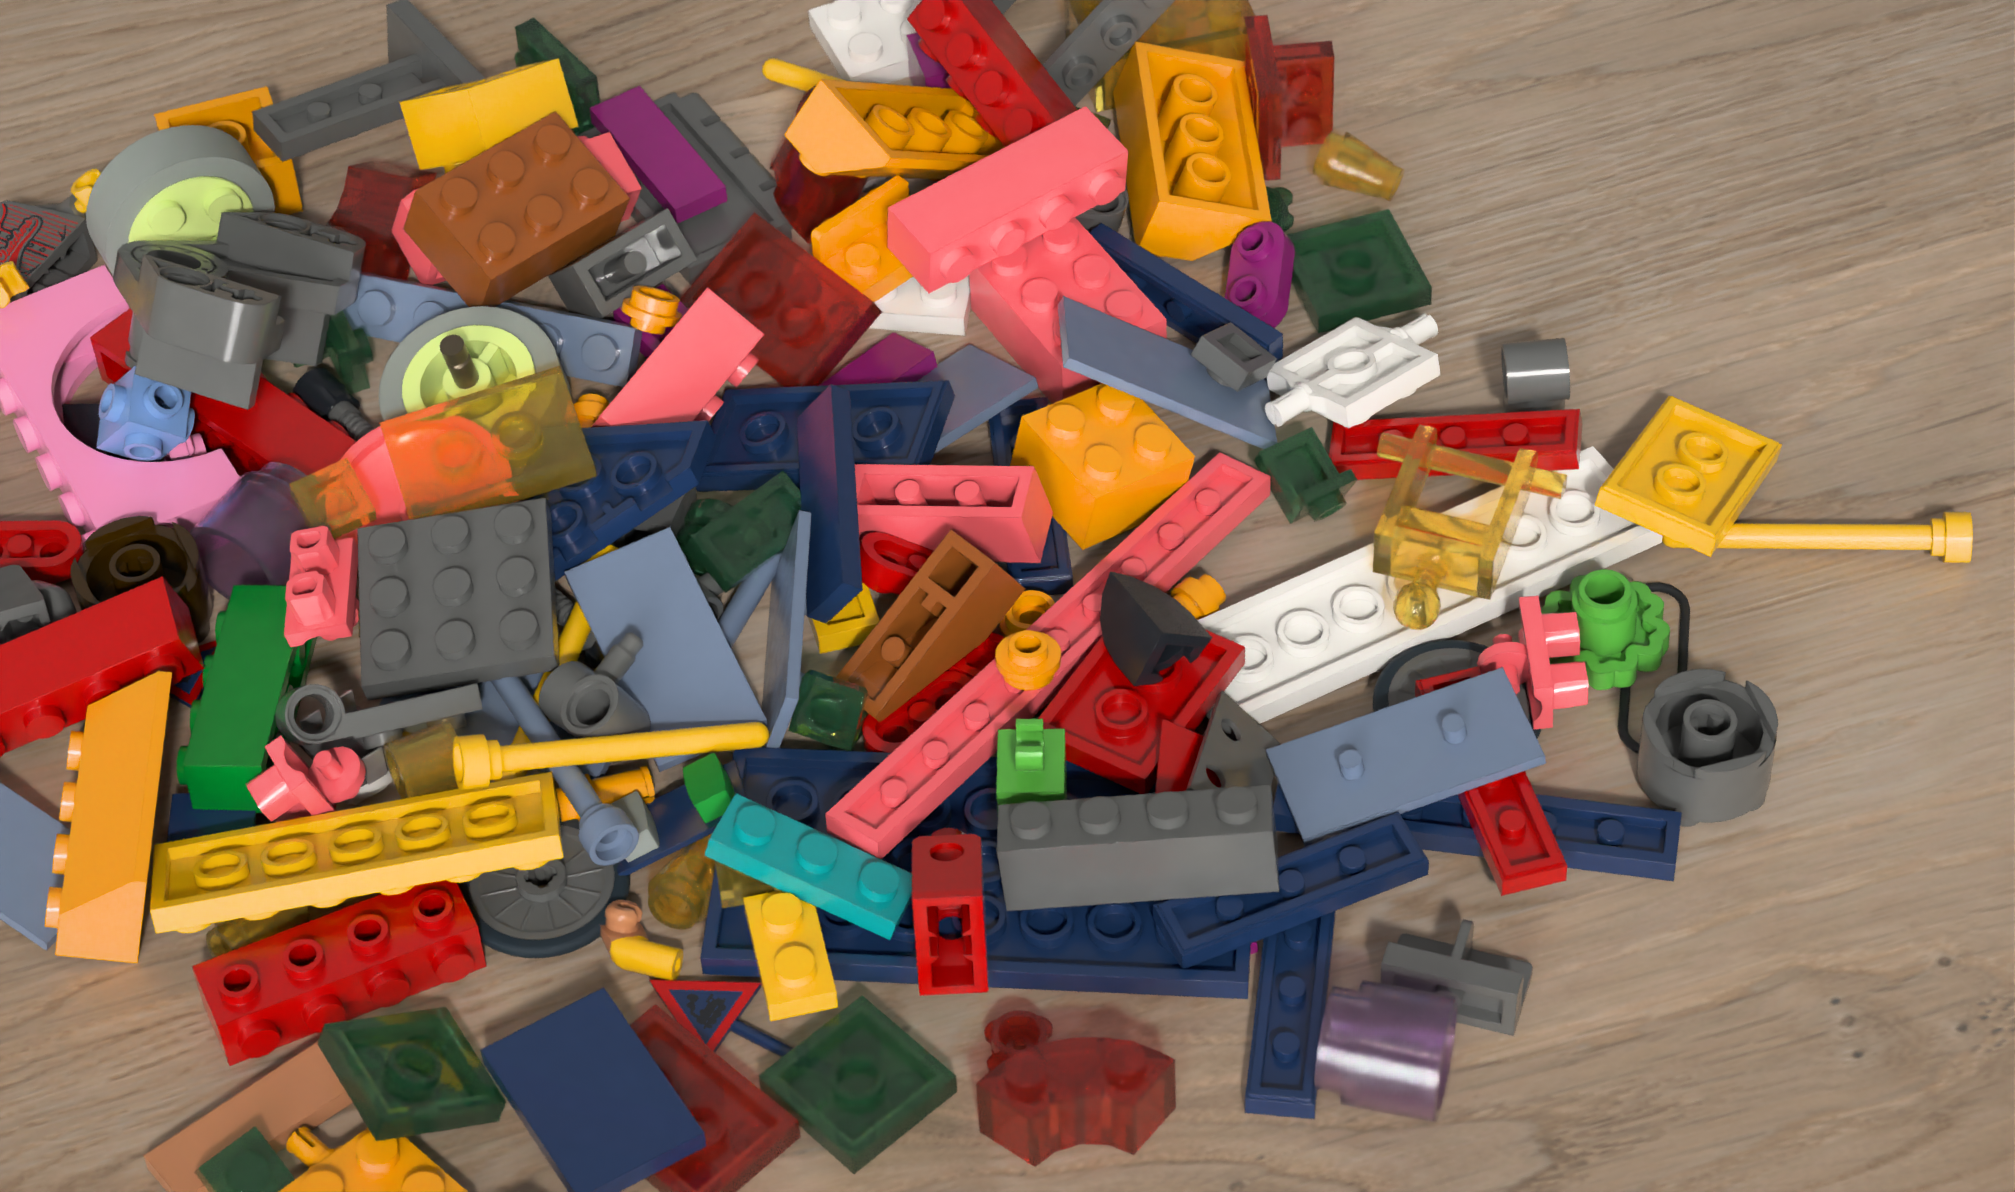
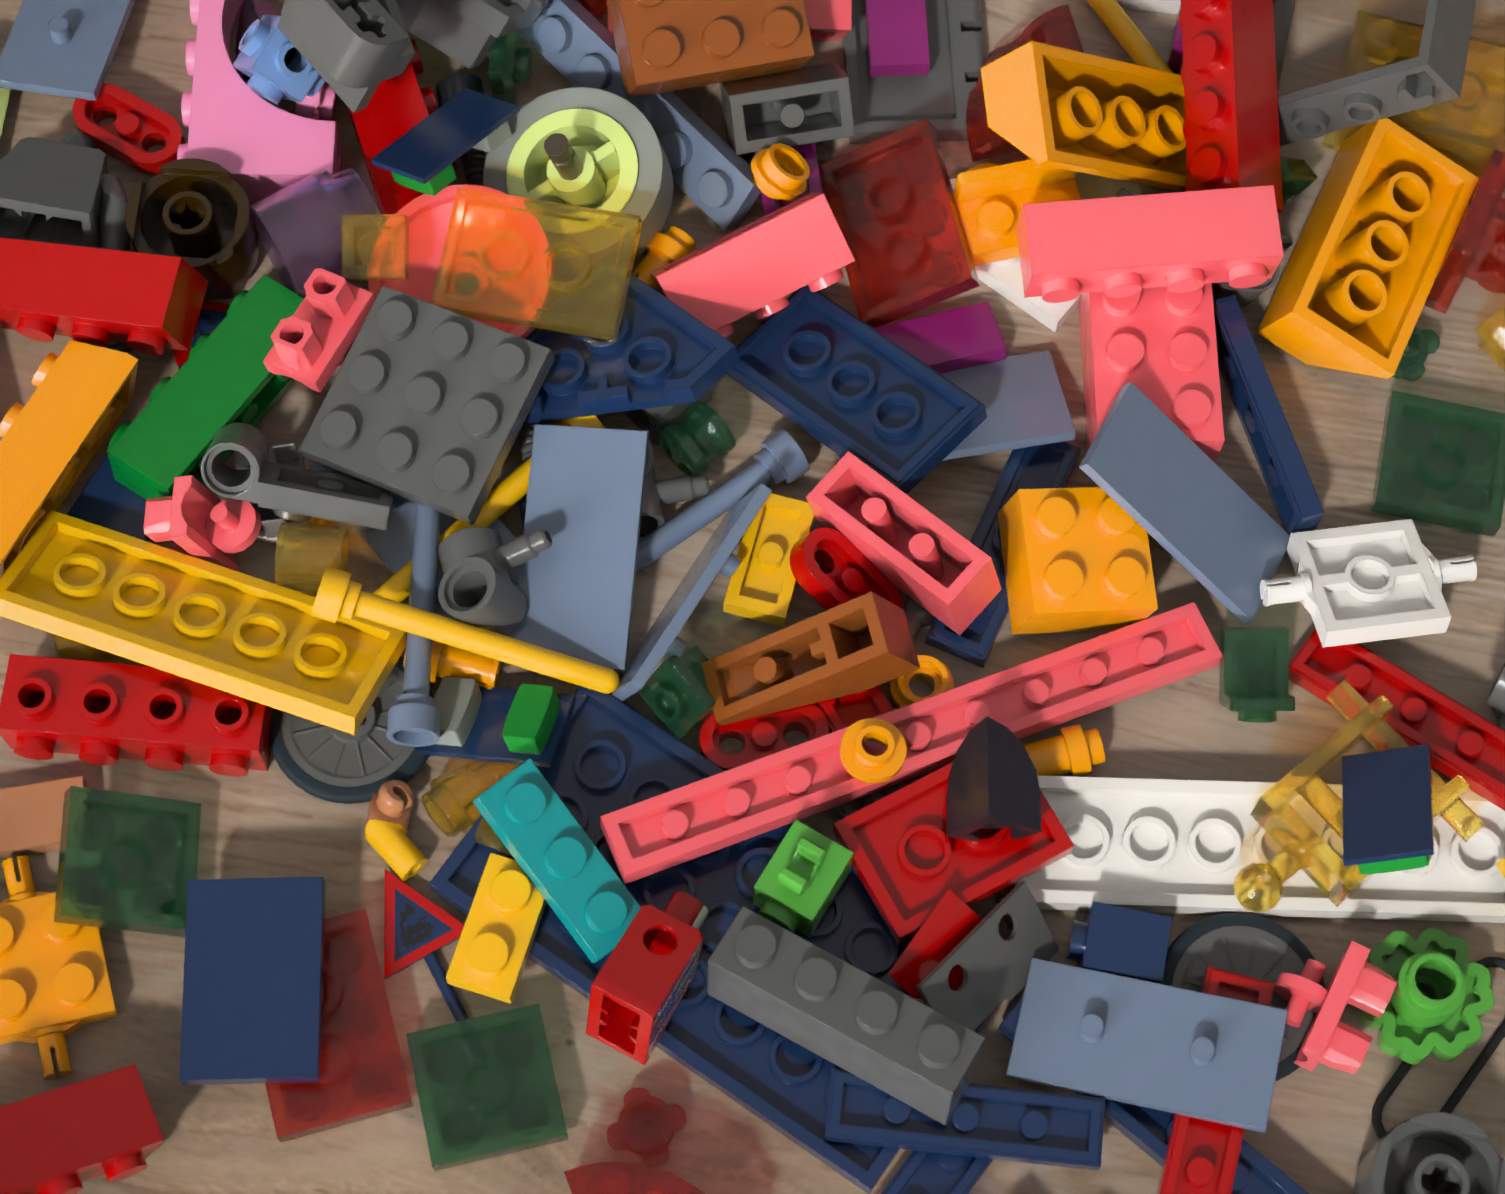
camera: 25 degrees right, 20 degrees up
(332, 414) = (426, 152): none -> dark blue piece
(748, 532) = (726, 466): clear green plate -> none
(831, 498) = (800, 482): dark blue tile -> none
(1233, 357) = (1262, 514): dark grey plate -> none
(1261, 267) = (1352, 424): magenta plate -> none
(1328, 700) = (1121, 942): none -> dark blue brick
(1485, 487) = (1387, 810): none -> dark blue piece

